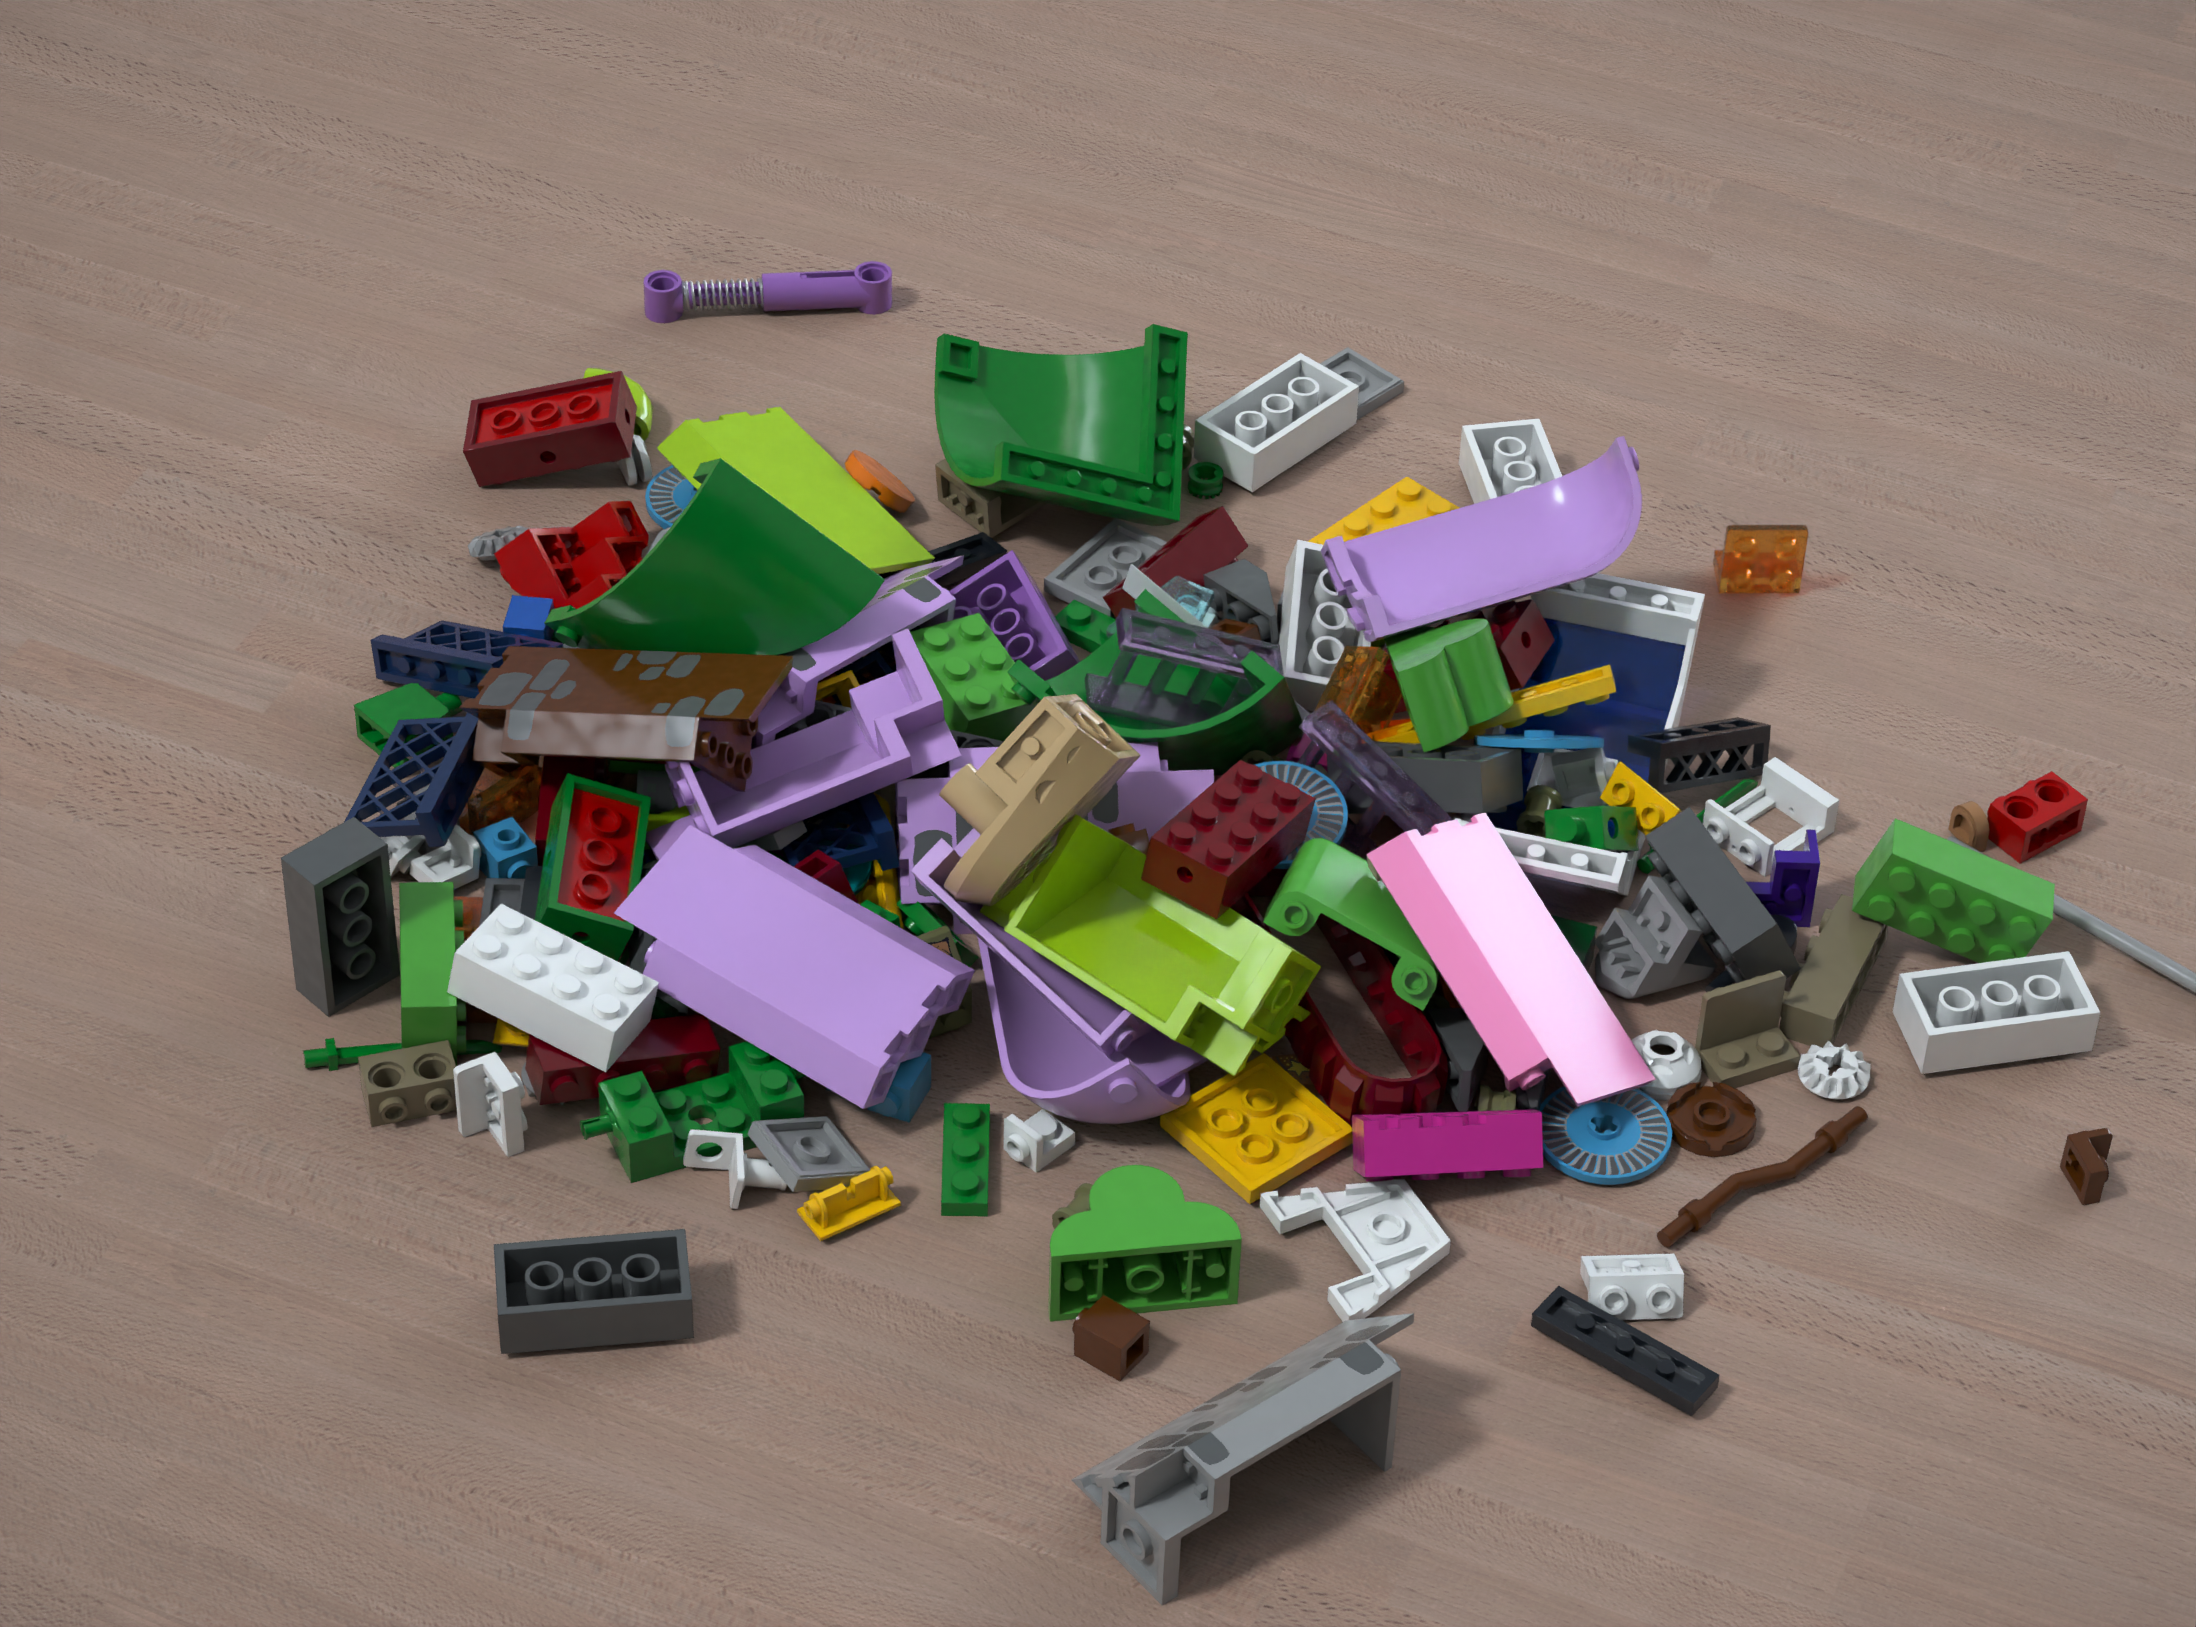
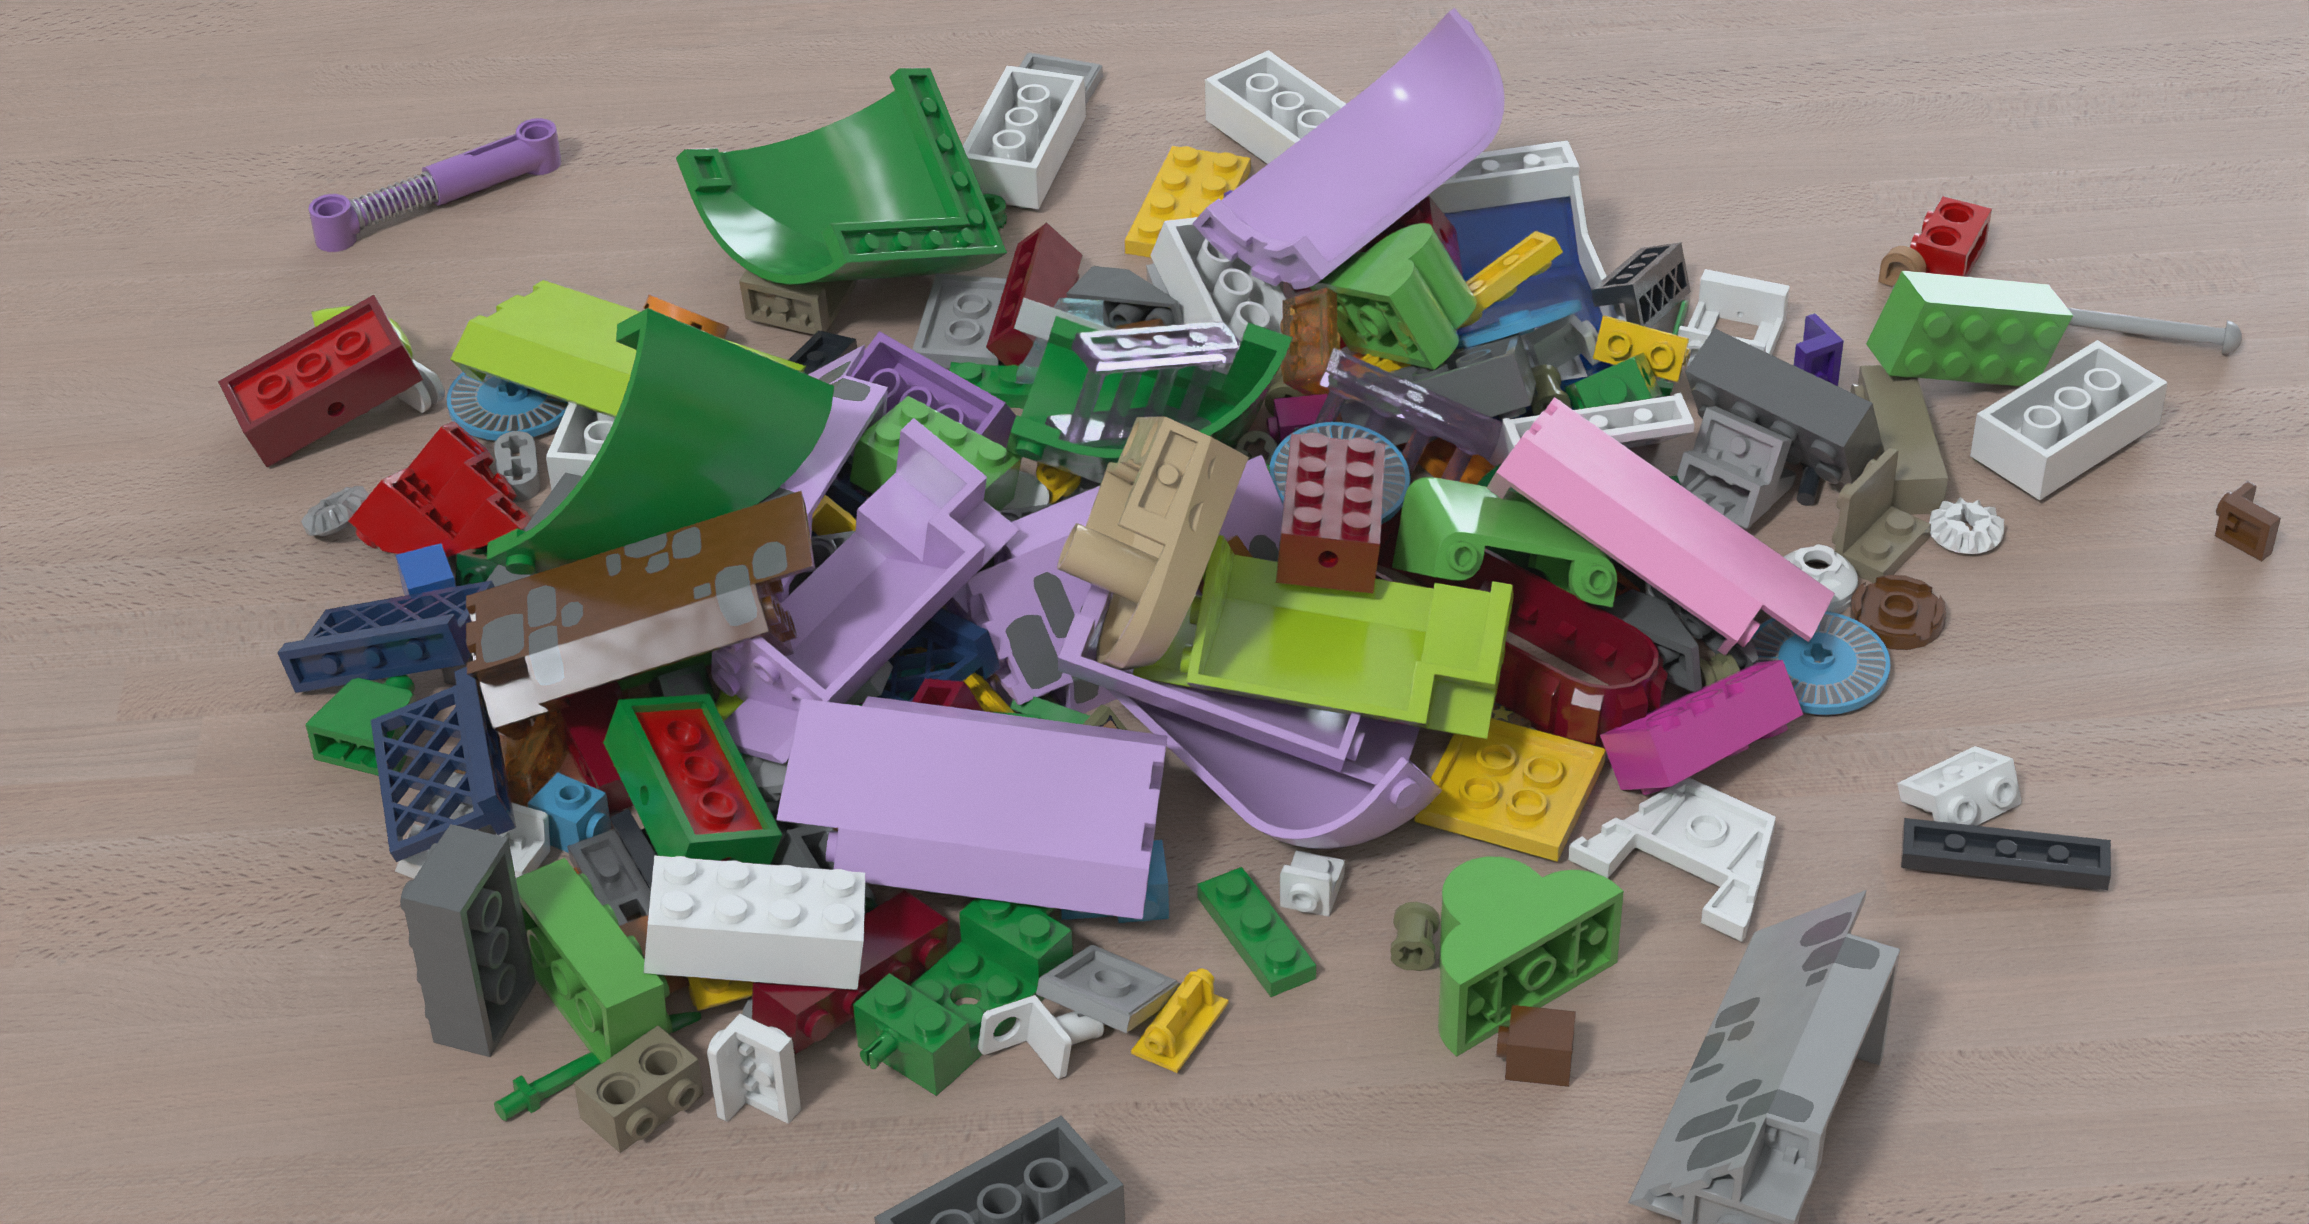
camera: 25 degrees left, 0 degrees up
(1698, 1212) = (1960, 699): reddish brown bar -> none
(1761, 559) = (1549, 106): clear orange bracket -> none

